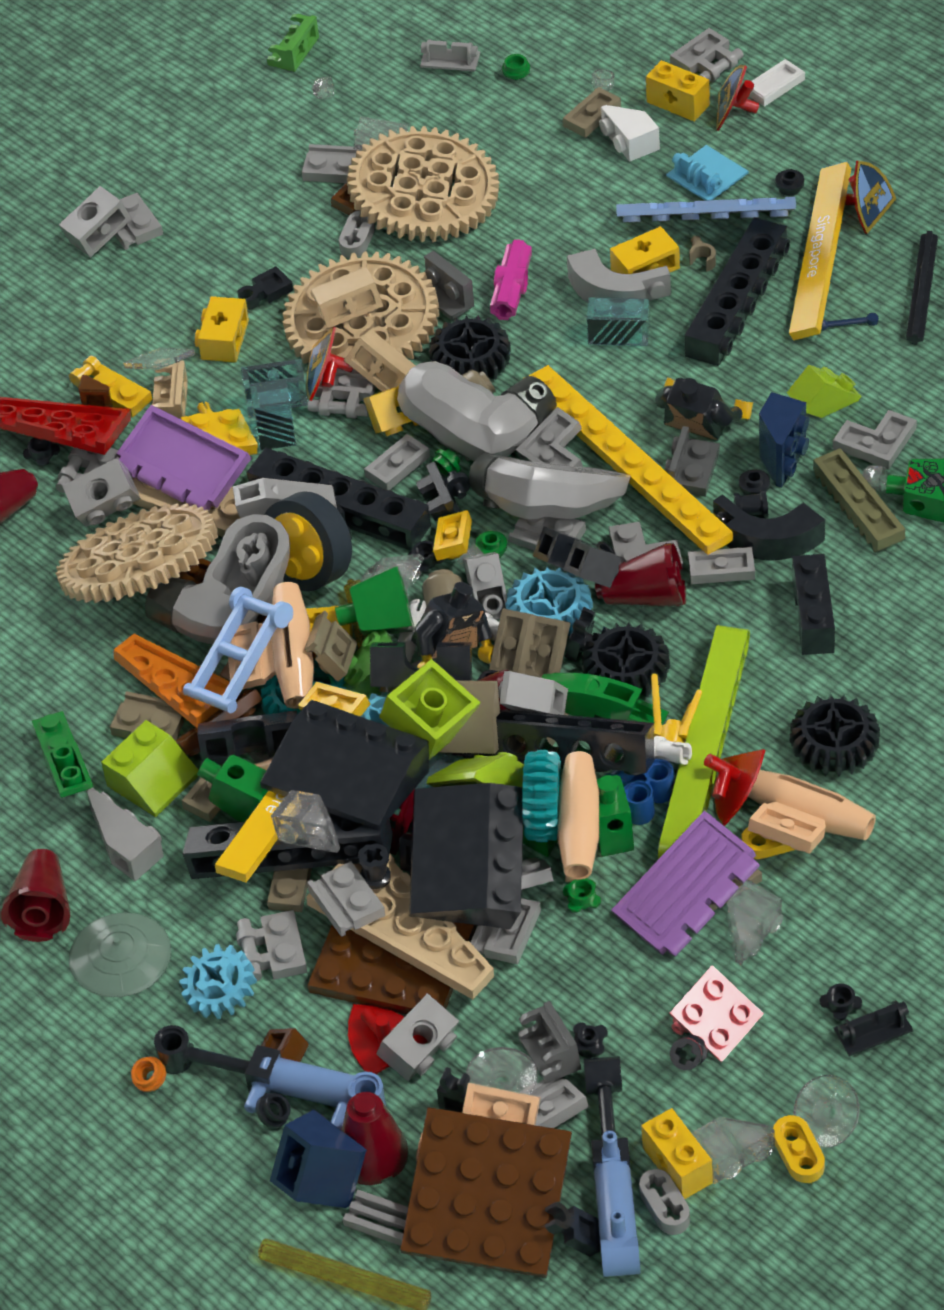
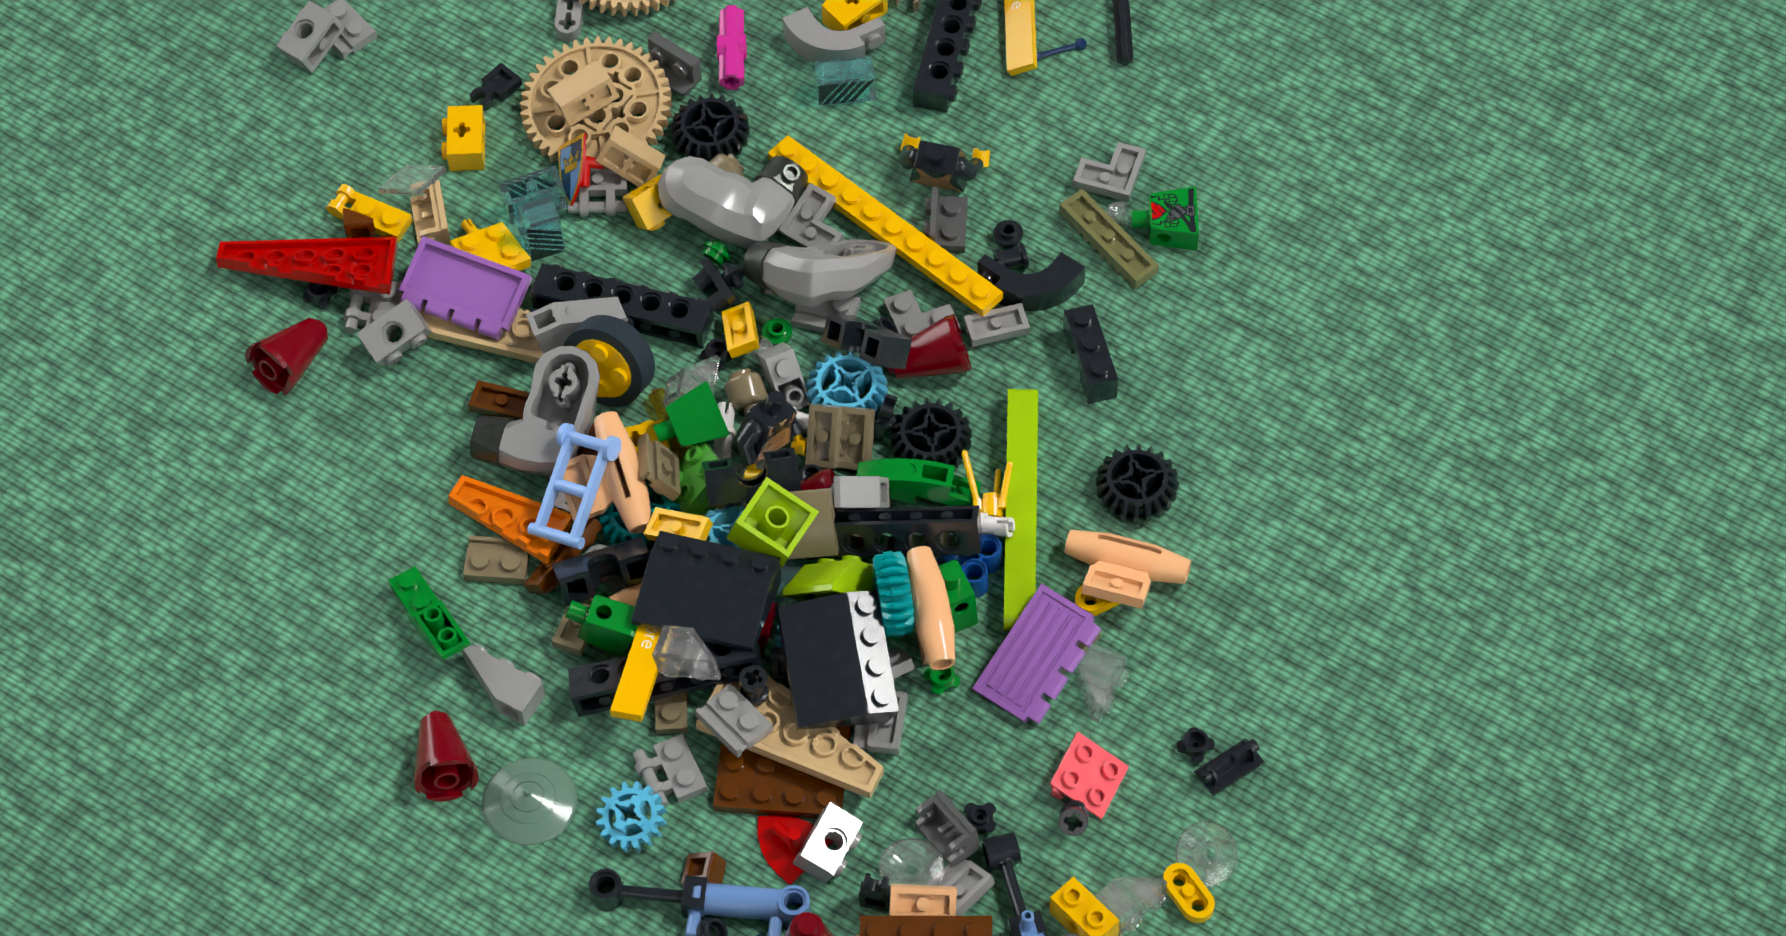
camera: 15 degrees left, 10 degrees up
(137, 553) = (448, 394): tan gear -> none
(142, 1068) = (580, 913): orange plate -> none
(149, 769) = (512, 613): lime slope -> none
(397, 462) = (668, 258): light grey plate -> none
(734, 781) = (1058, 545): red shield -> none
(782, 436) = (1027, 185): dark blue slope -> none
(823, 391) = (1053, 130): lime slope -> none

